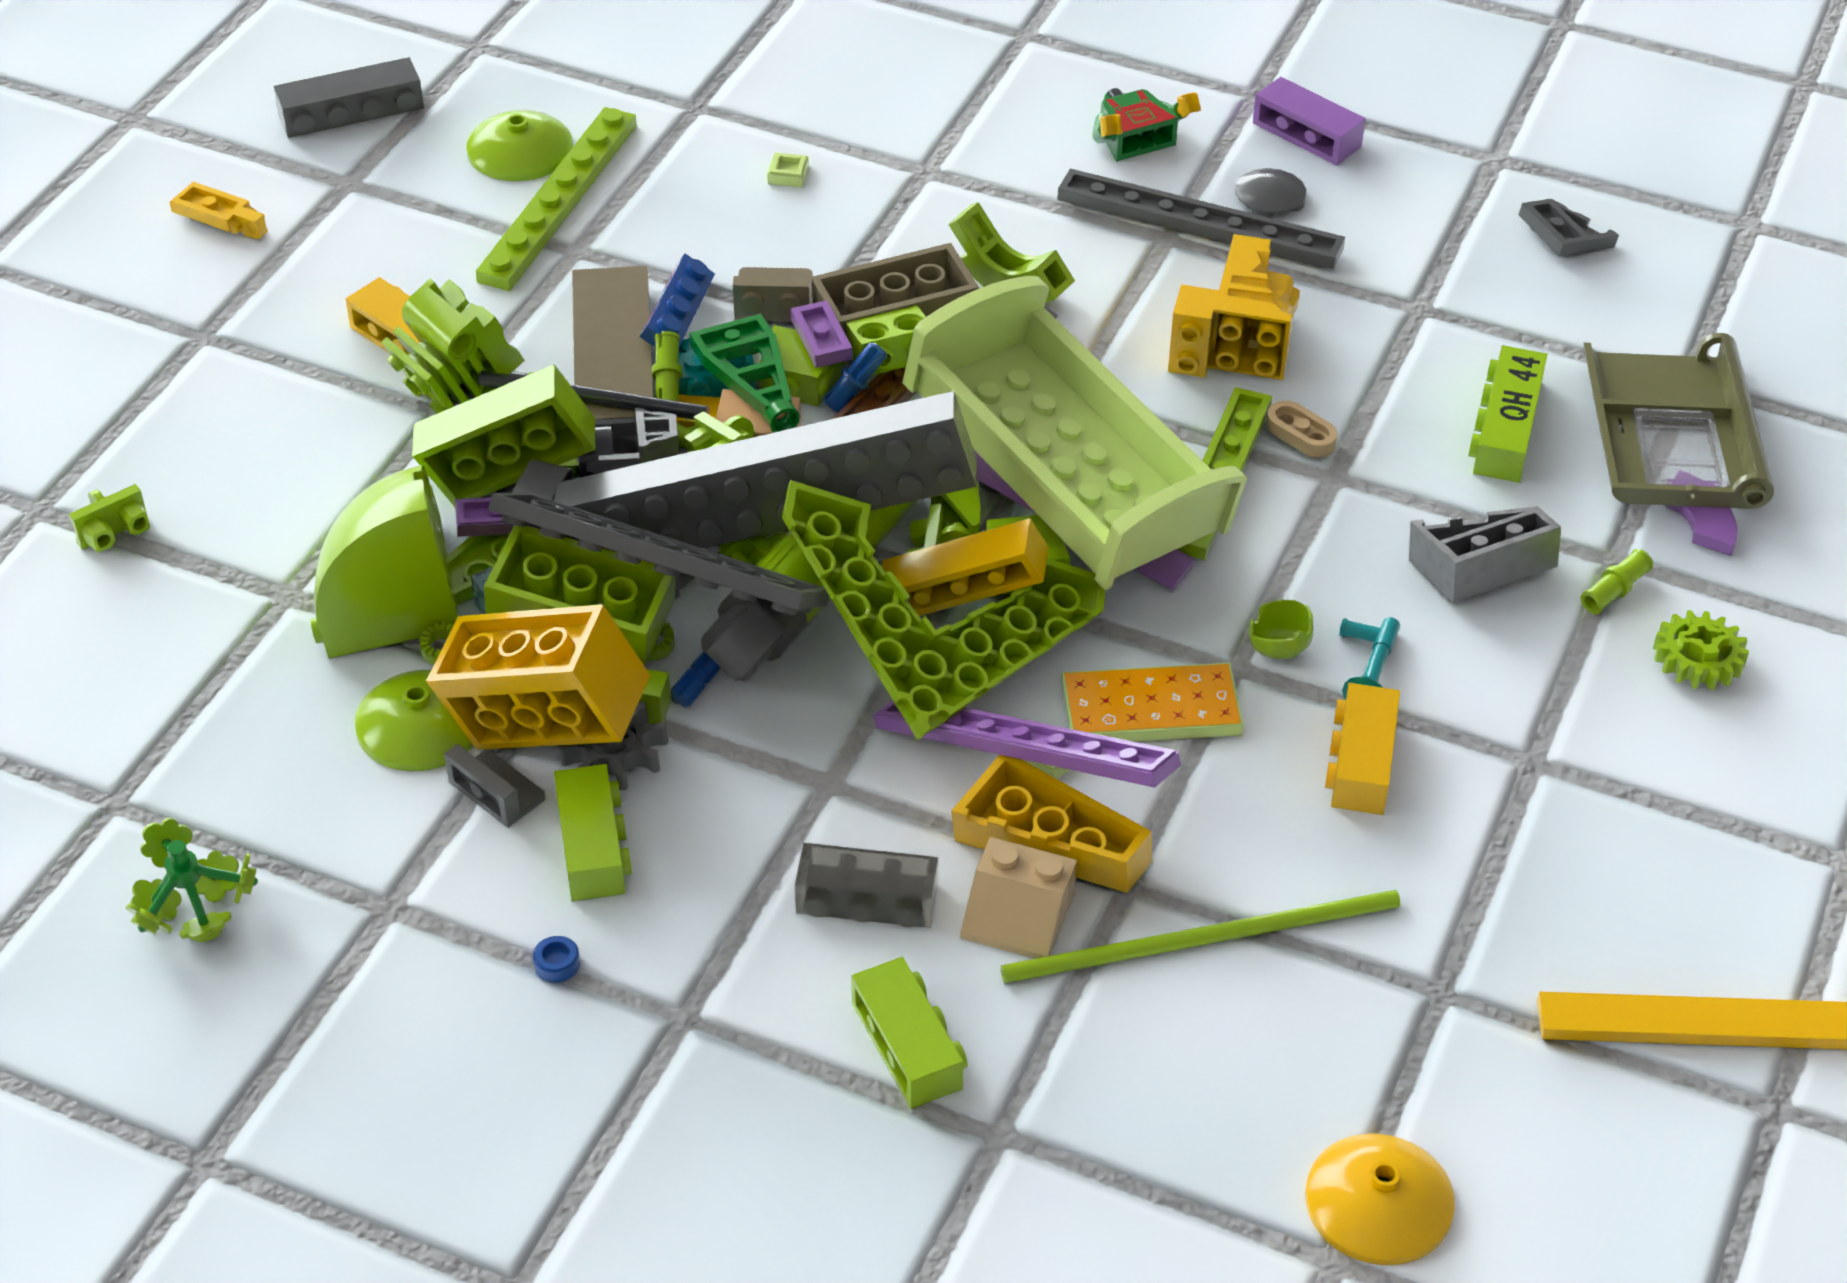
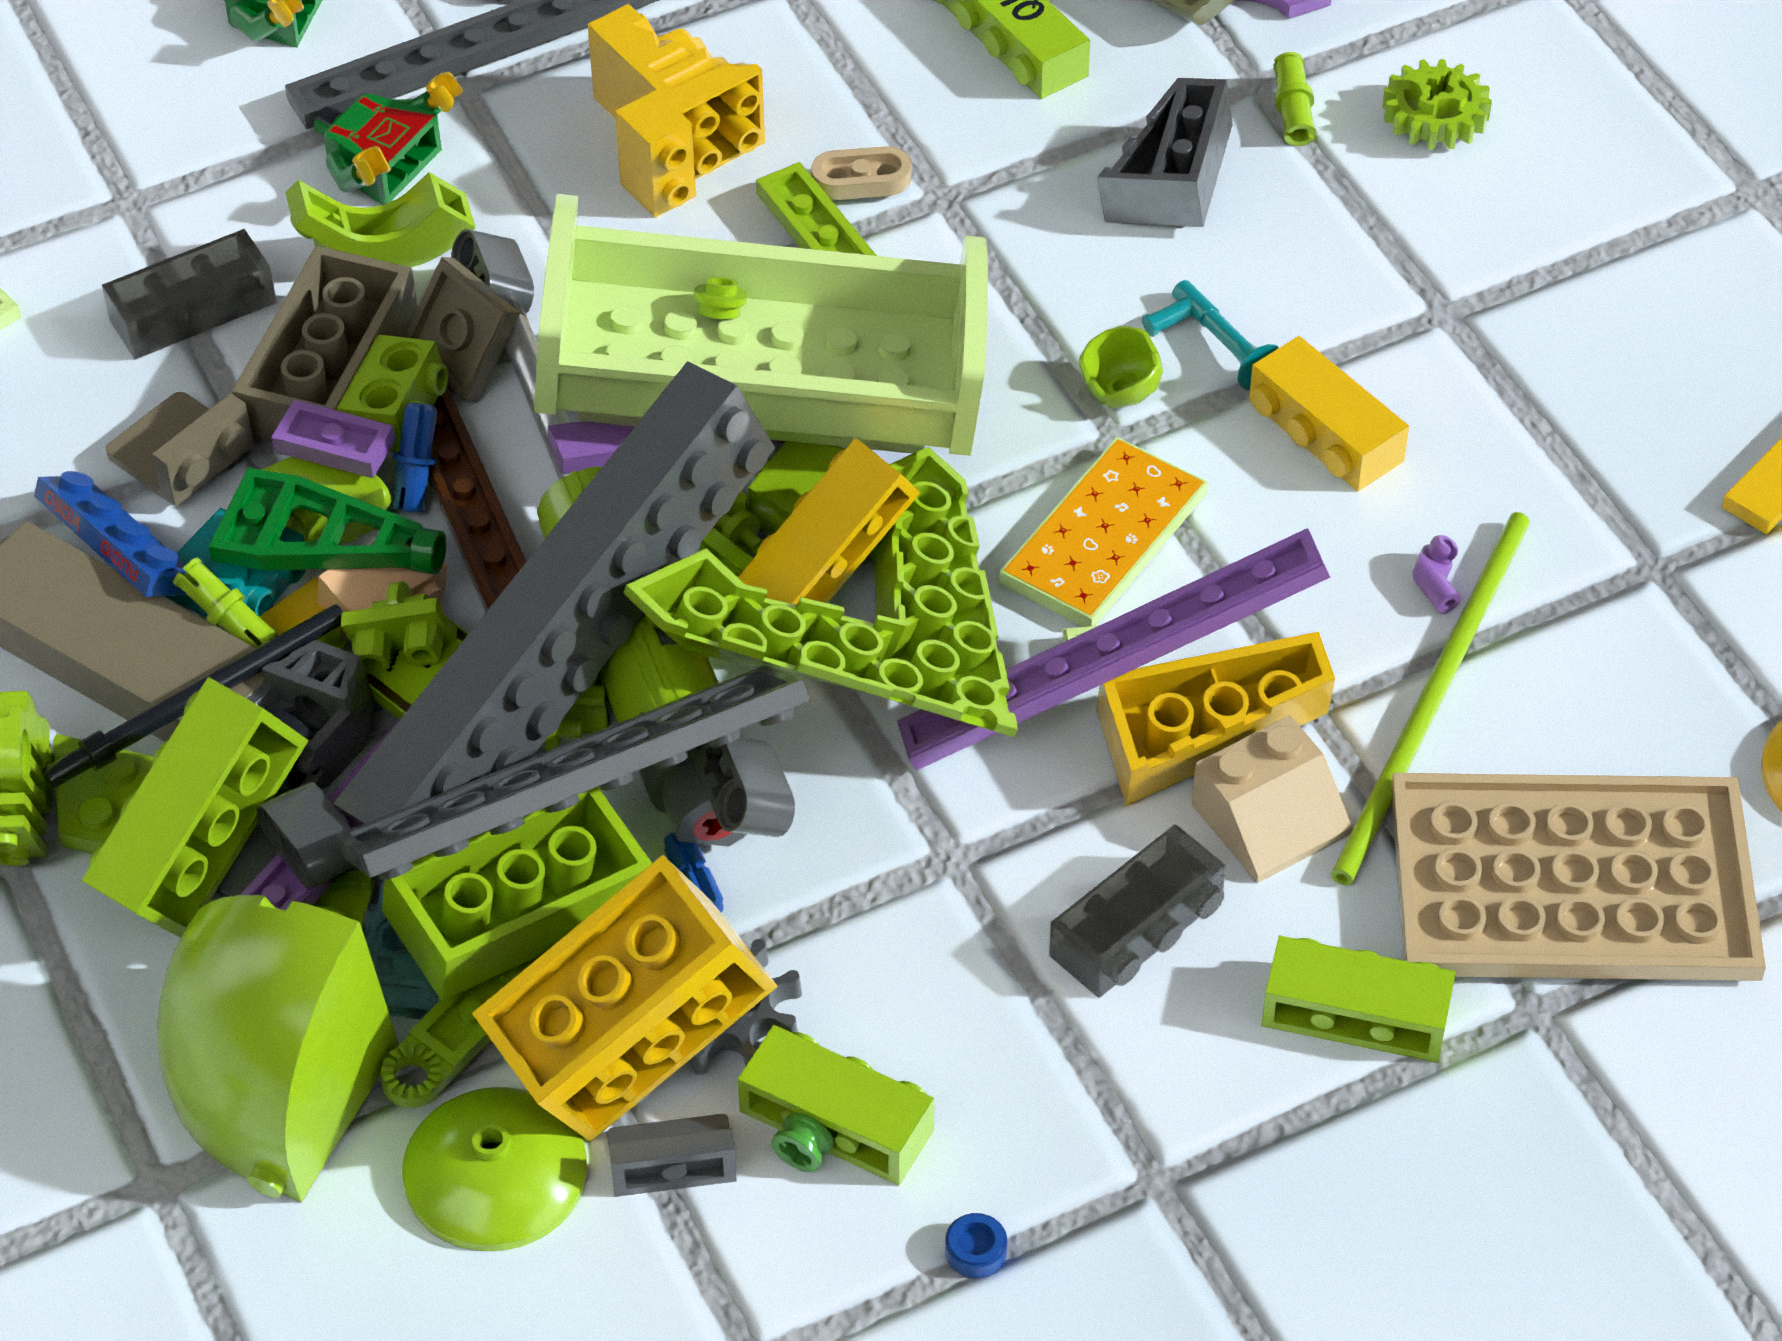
camera: 50 degrees left, 5 degrees up
(550, 833) = (802, 1142): none -> bright green bush
(877, 226) = (189, 293): none -> clear smoke brick
(1078, 227) = (383, 140): none -> torso
(1079, 405) = (720, 298): none -> lime plate
(1124, 1093) = (1576, 876): none -> tan plate
(1300, 877) = (1432, 571): none -> medium lavender arm

